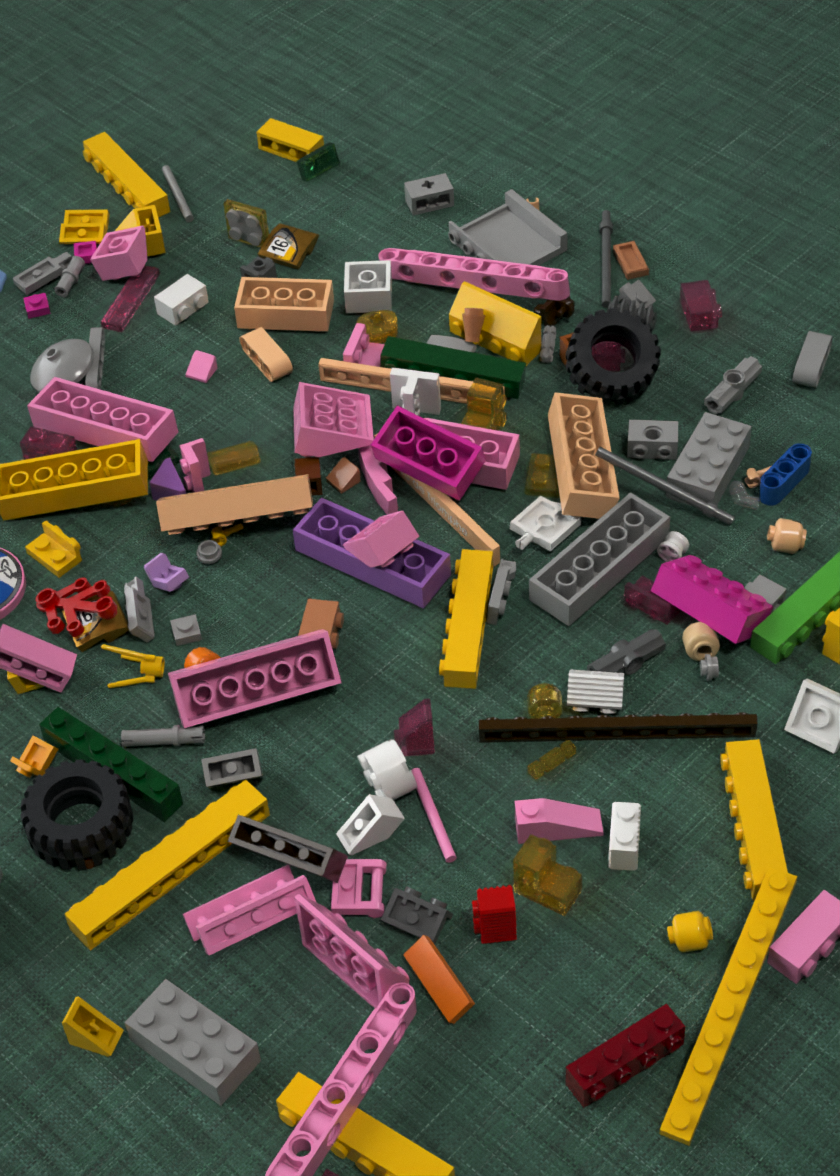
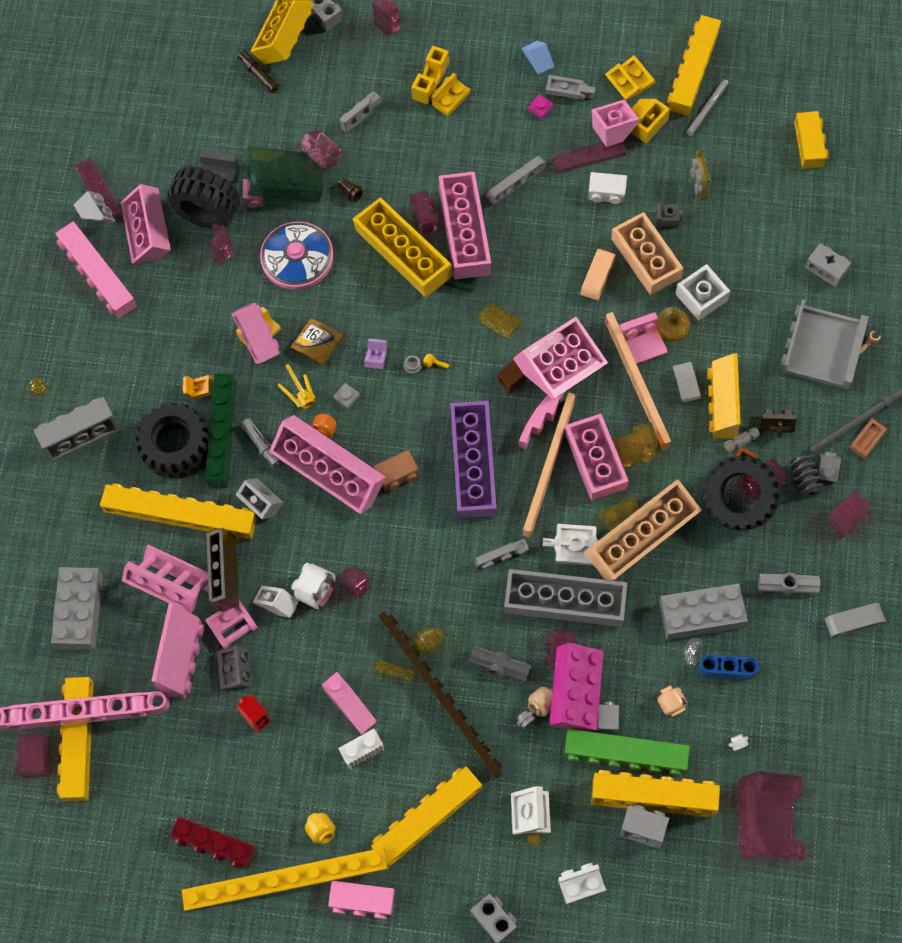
camera: 55 degrees right, 20 degrees up
(49, 600) = (312, 306): red plant -> none
(55, 550) = (351, 278): yellow bracket -> none
(65, 360) = (496, 164): light grey dish -> none
(69, 276) = (578, 105): light grey pin -> none
(85, 250) = (606, 96): dark pink plate -> none
(90, 1028) = (52, 551): yellow slope -> none
(138, 610) = (339, 359): light grey hinge -> none
(166, 481) = (446, 301): medium lavender slope -> none
(194, 464) = (463, 305): bright pink bracket -> none
(201, 366) = (559, 244): bright pink slope -> none
(234, 503) = (450, 354): light nougat brick -> none
(288, 245) = (709, 213): pearl gold slope -> none
(318, 161) = (804, 171): clear green plate -> none
(344, 475) = (529, 396): nougat slope -> none
(383, 540) = (472, 462): bright pink slope -> none
(415, 391) = (621, 391): white bracket -> none
(428, 452) = (562, 439): dark pink brick -> none
(434, 817) = (309, 629): bright pink bar -> none
(439, 979) = (199, 709): orange tile -> none
(453, 363) = (668, 397): dark green brick -> none
(468, 619) = (465, 550): yellow brick -> none
(473, 321) = (711, 382): nougat cone -> none
(487, 274) = (766, 361): bright pink beam -> none
(542, 878) = (300, 720): clear yellow brick -> none
(595, 690) = (457, 663): white brick -> none
(652, 439) = (697, 552): light grey brick -> none
(673, 546) = (611, 636): white wheel -> none
(709, 508) = (661, 637): dark grey bar -> none
(753, 478) = (714, 646): light nougat hand -> none

